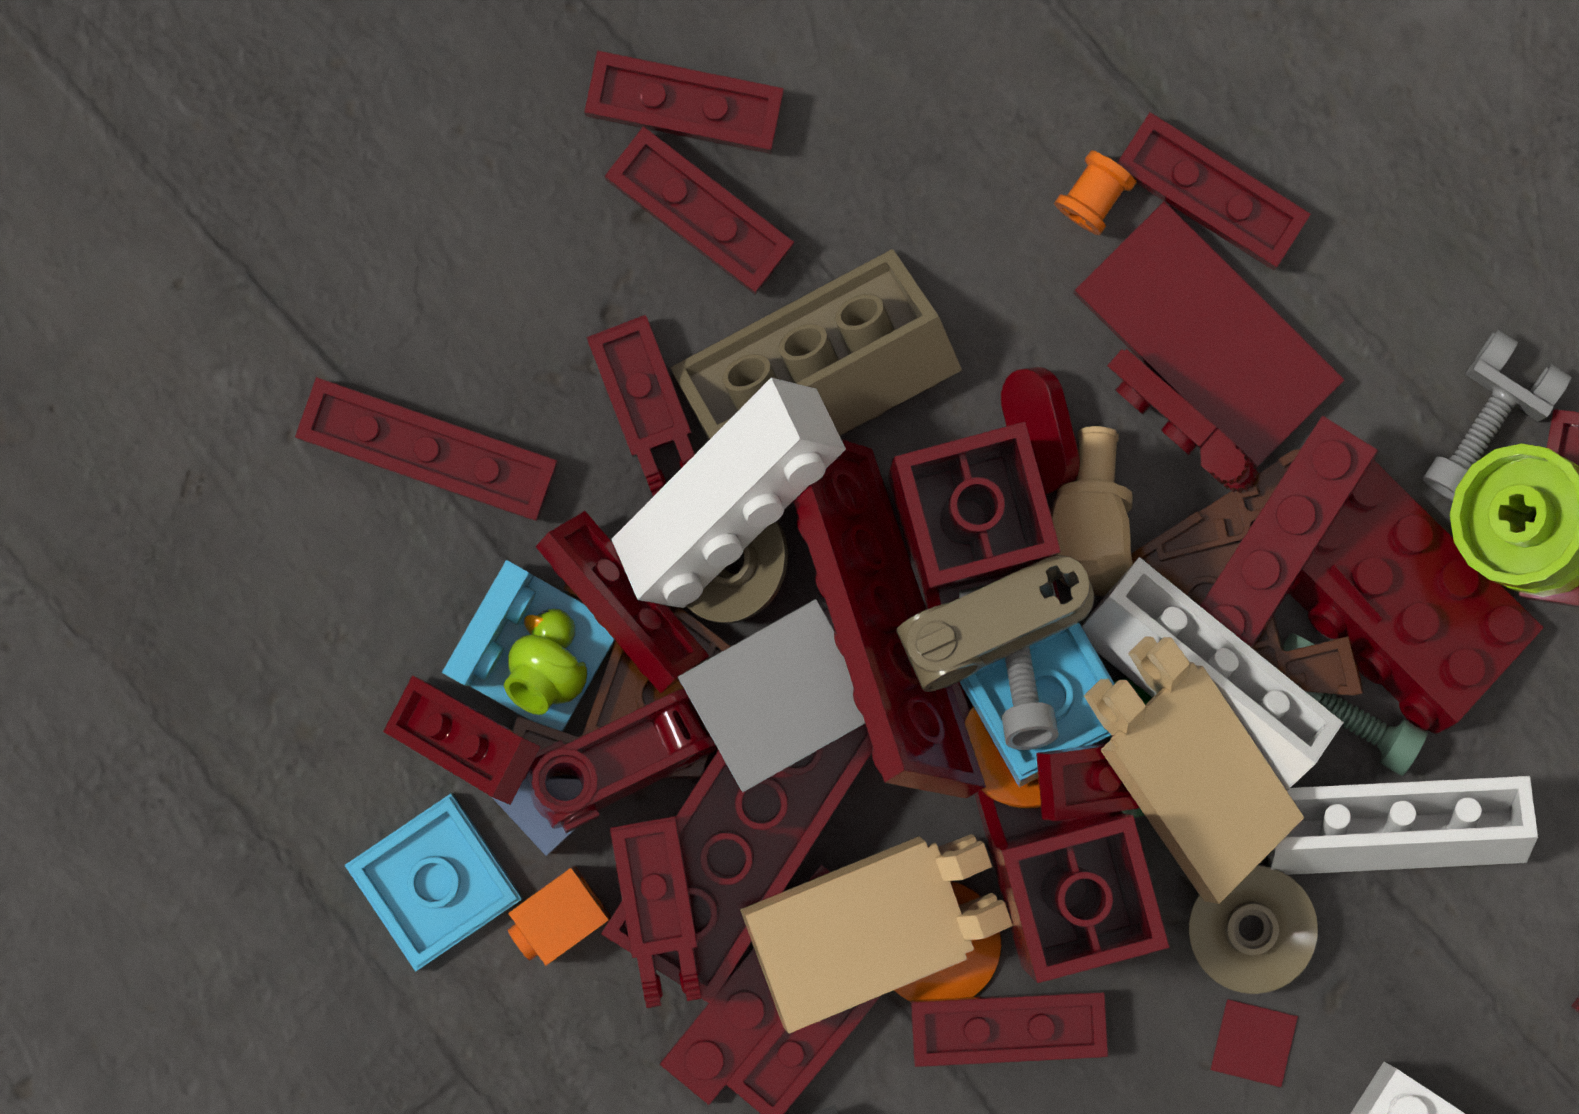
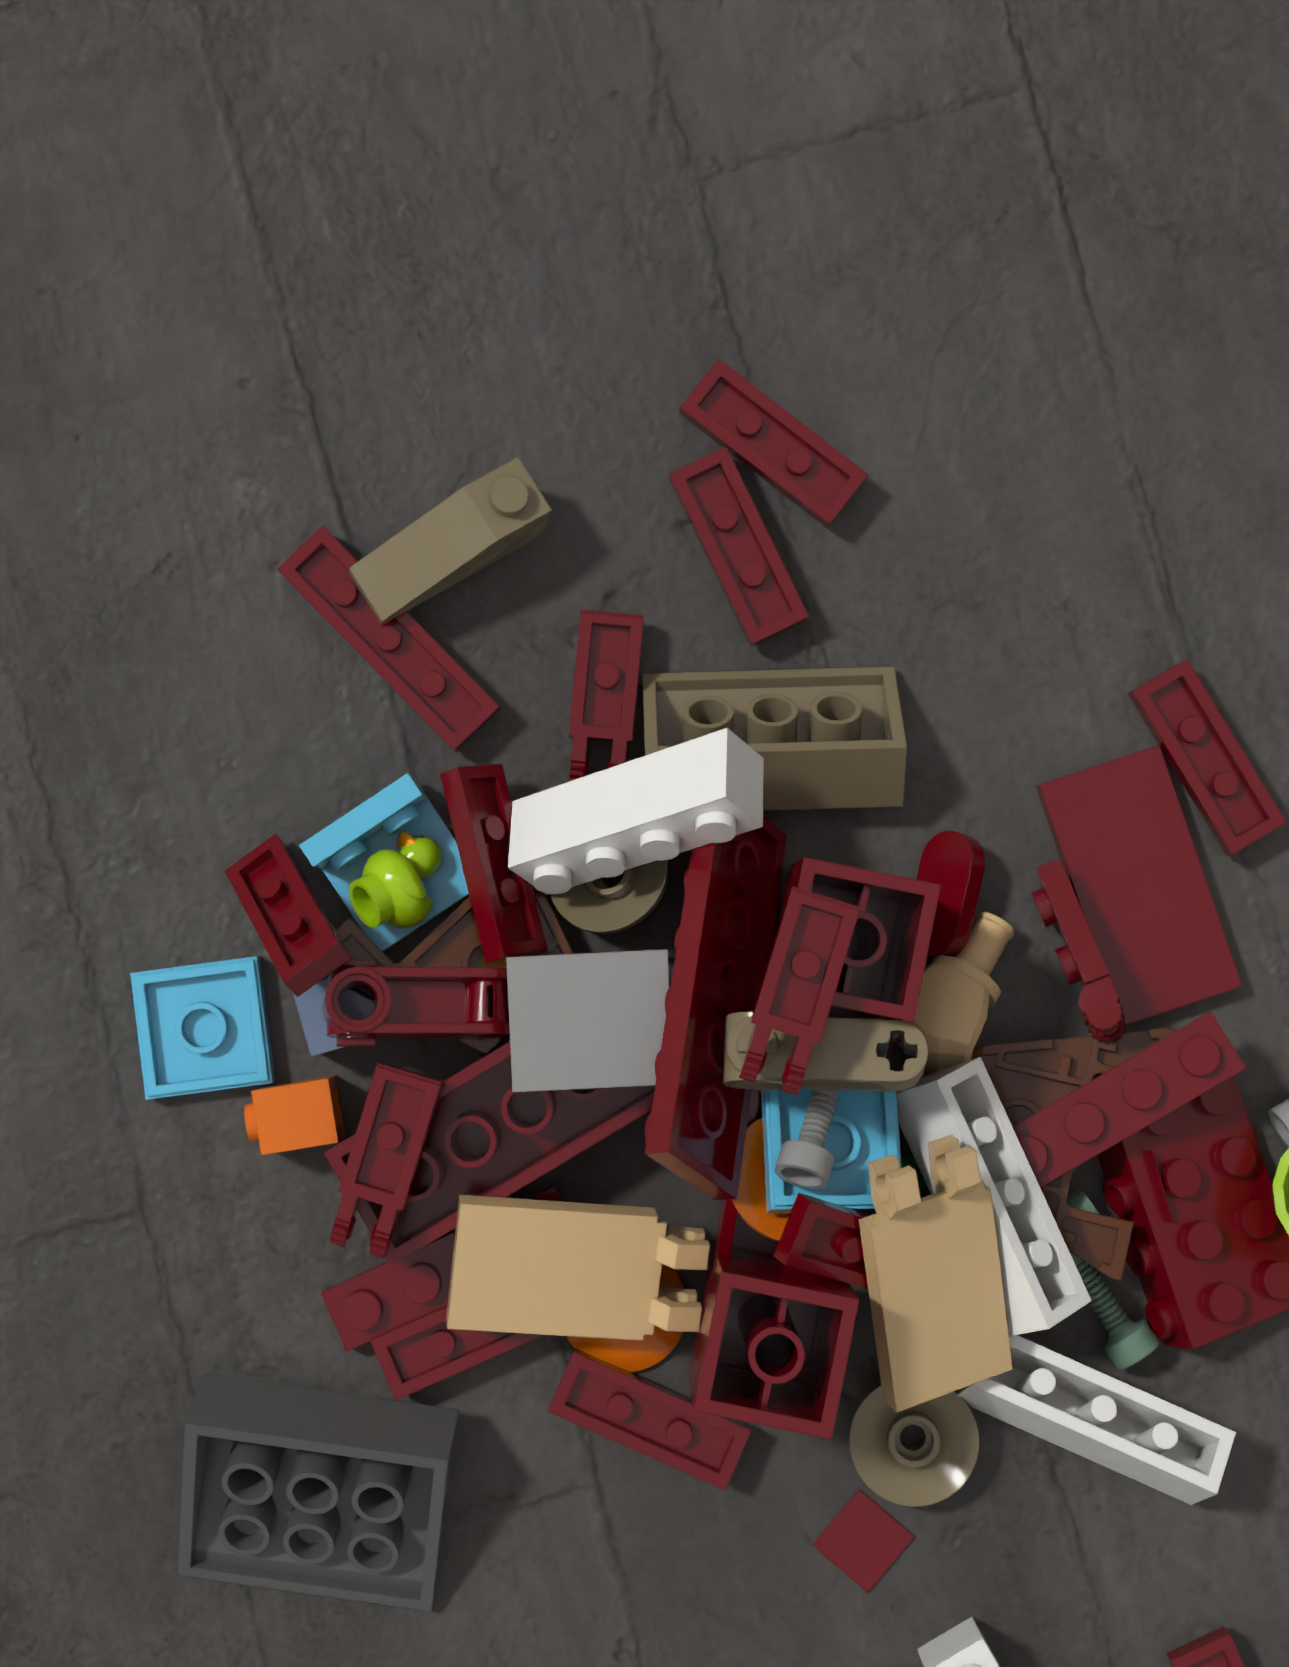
camera: 25 degrees right, 0 degrees up
(441, 333) = (453, 541): none -> dark tan slope
(944, 565) = (800, 981): none -> dark red hinge
(1095, 192) = (1101, 706): orange bush -> none

